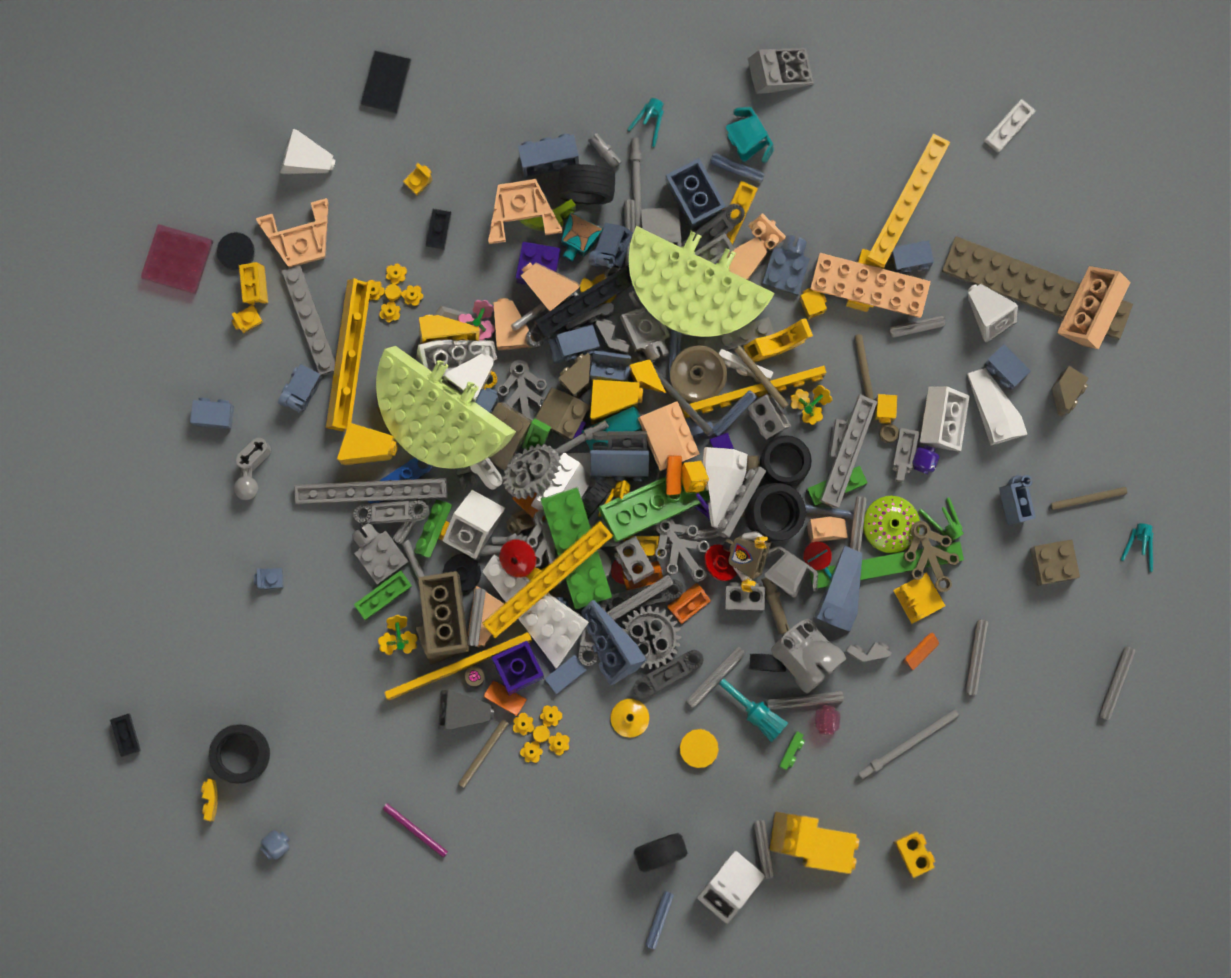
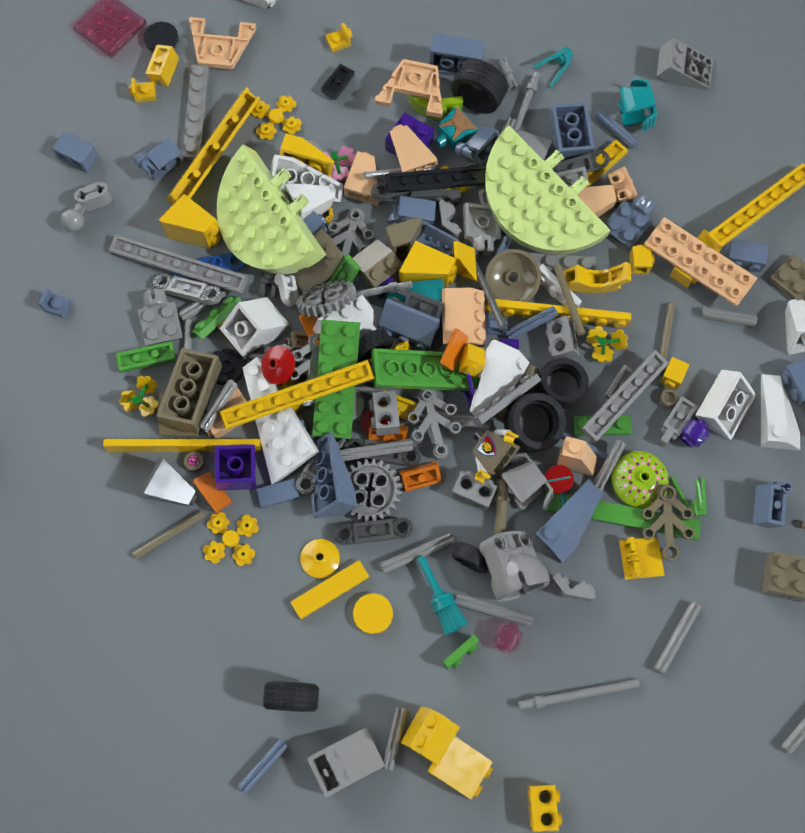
camera: 20 degrees right, 10 degrees down
(415, 830) = (72, 580): magenta bar -> none
(651, 743) = (330, 589): none -> yellow tile
(717, 563) = (462, 449): red dish -> none
(921, 651) = (625, 609): orange slope -> none

